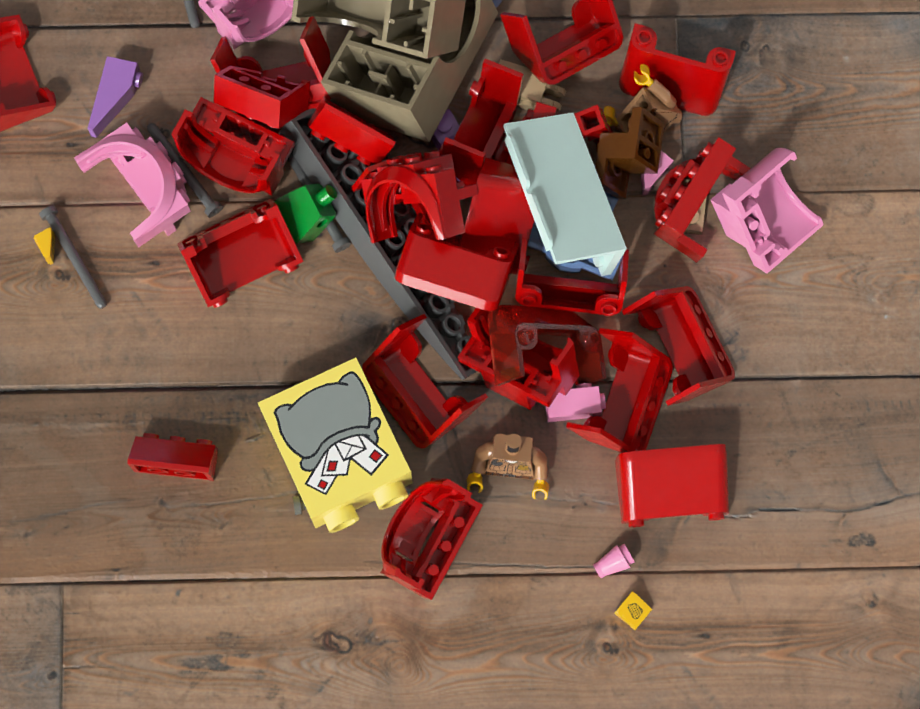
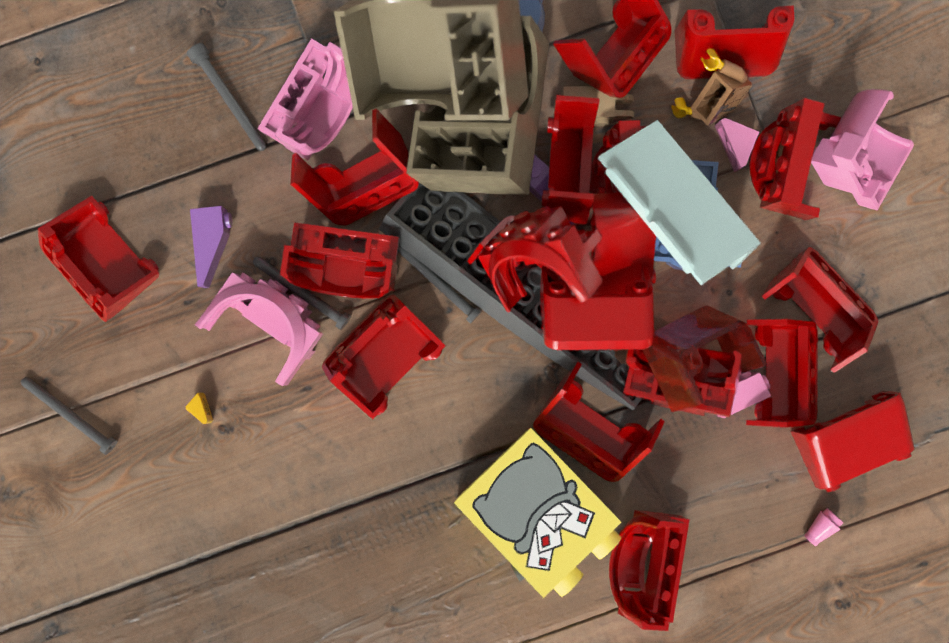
camera: 20 degrees left, 10 degrees up
(49, 214) = (193, 378): dark grey bar -> none
(173, 457) = (390, 571): red slope -> none
(260, 97) = (351, 205): red wedge -> none
(307, 211) = (432, 295): green torso -> none
(350, 132) = (449, 209): red slope -> none
(510, 457) = (700, 466): medium nougat torso -> none
(570, 293) = (718, 294): red windscreen -> none
(592, 123) = (678, 123): red piece -> none
(629, 152) = (720, 140): reddish brown bracket -> none
(633, 610) = (852, 564): yellow slope -> none

